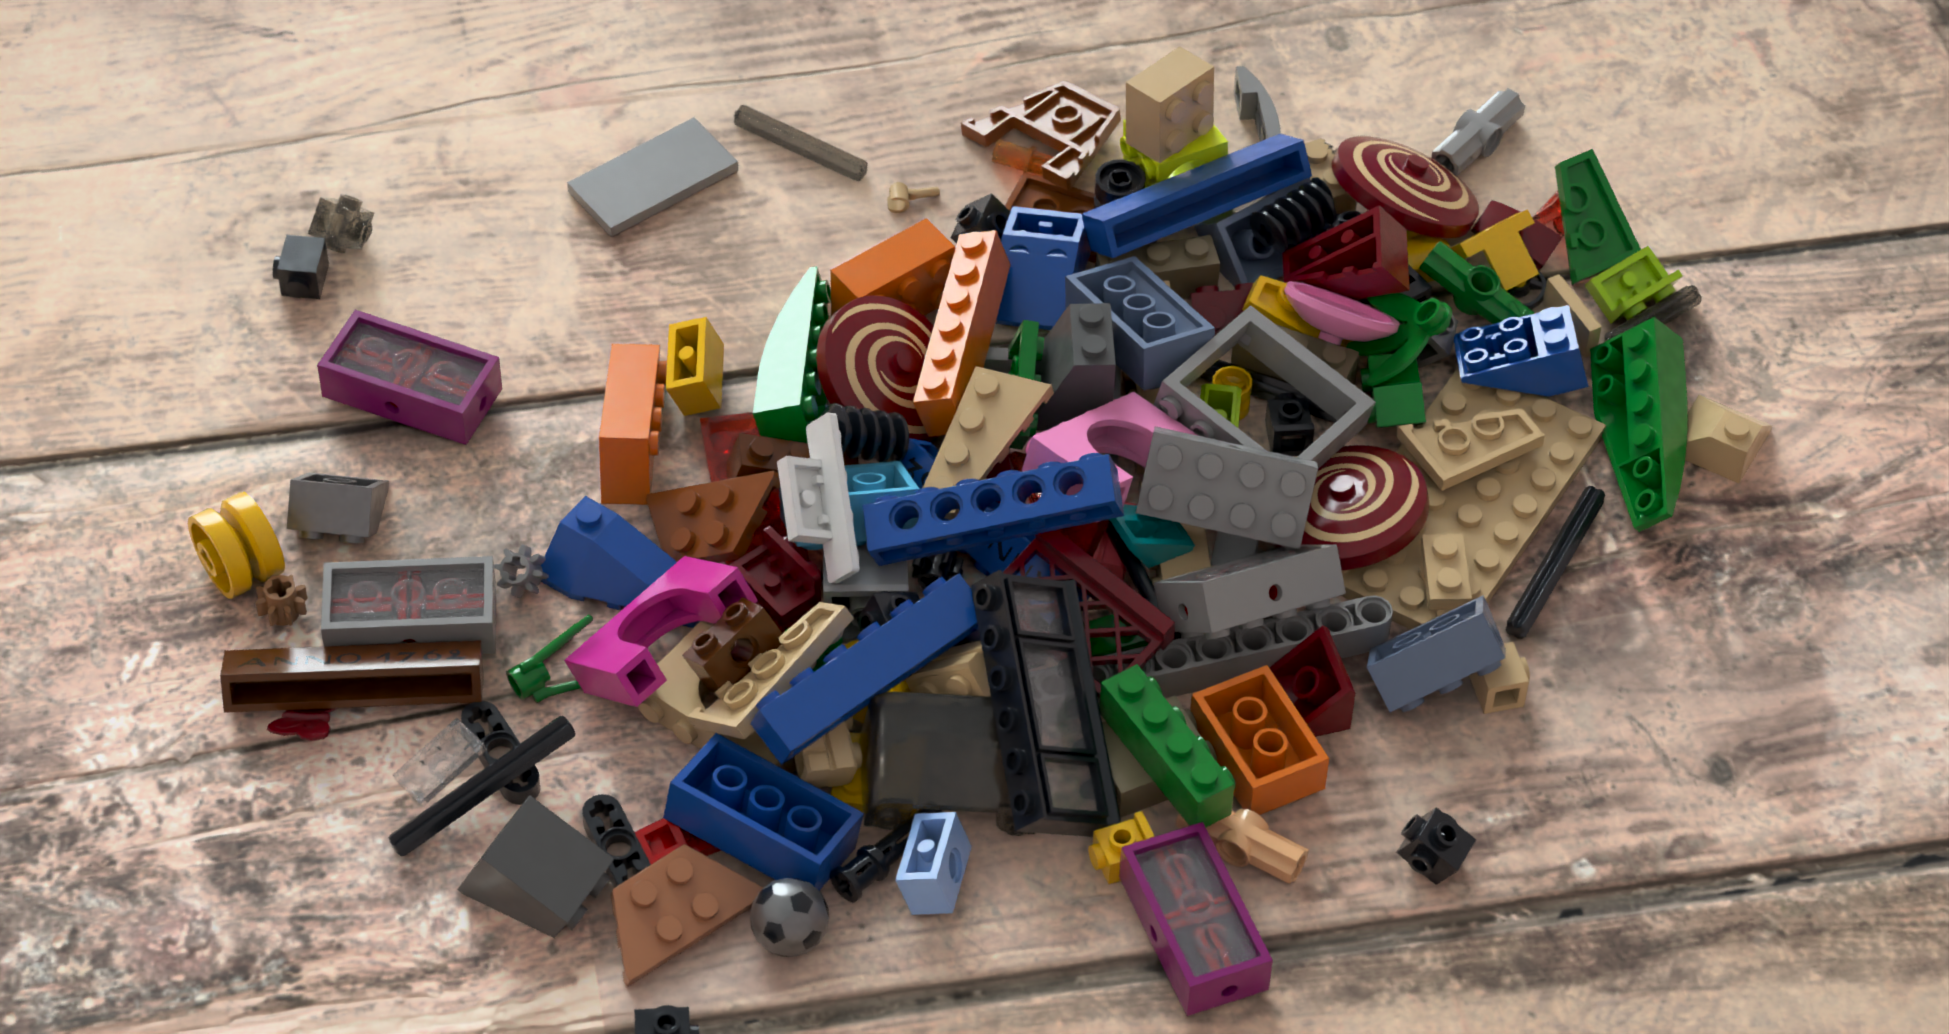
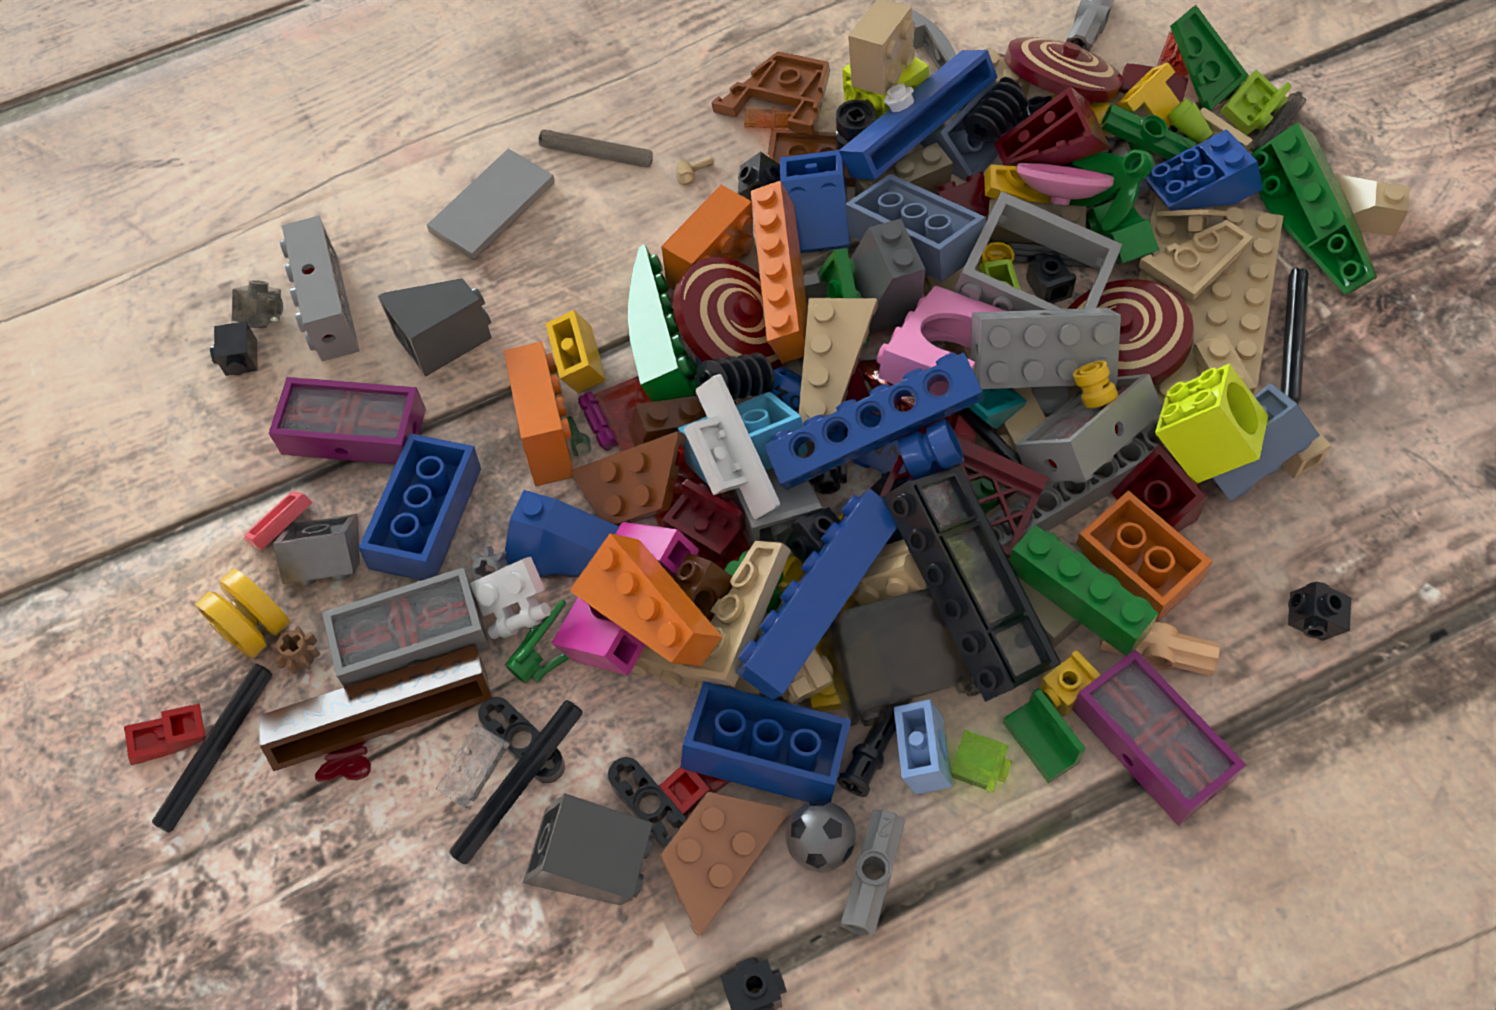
camera: 10 degrees left, 10 degrees up
(111, 652) = (164, 736): none -> red slope
(163, 675) = (211, 748): none -> black axle
(298, 462) = (277, 520): none -> coral tile
(418, 223) = (318, 289): none -> light grey brick
(464, 487) = (420, 508): none -> blue brick
(532, 589) = (505, 587): none -> white plate
(545, 293) = (437, 321): none -> dark grey slope
(666, 461) = (577, 436): none -> clear green hand
(677, 626) = (645, 601): none -> orange wedge
(694, 449) = (597, 421): none -> magenta axle
(822, 986) = (868, 895): none -> light grey piece
(992, 896) = (980, 761): none -> clear neon green brick
(1053, 555) = (930, 450): none -> blue wheel
(1075, 894) = (1045, 736): none -> green panel
(1175, 170) = (899, 97): none -> white plate
(1265, 538) = (1095, 384): none -> yellow wheel
(1381, 611) = (1212, 424): none -> neon yellow brick
(1488, 398) = (1197, 218): none -> tan piece
(1533, 285) = (1190, 121): none -> lime cone

